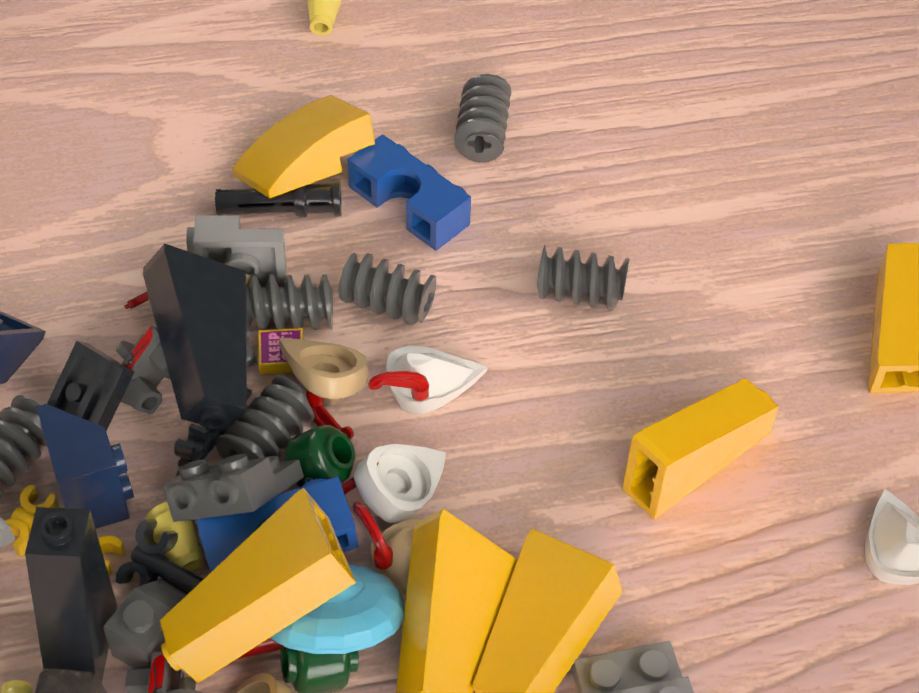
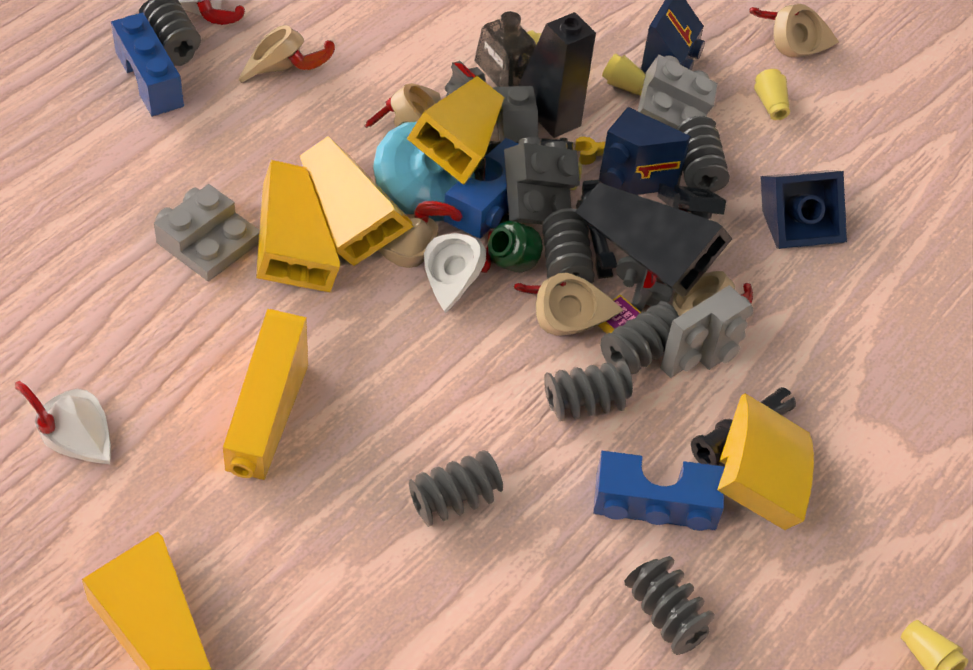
camera: 140 degrees right, 0 degrees up
(426, 377) = (505, 352): white piece -> none

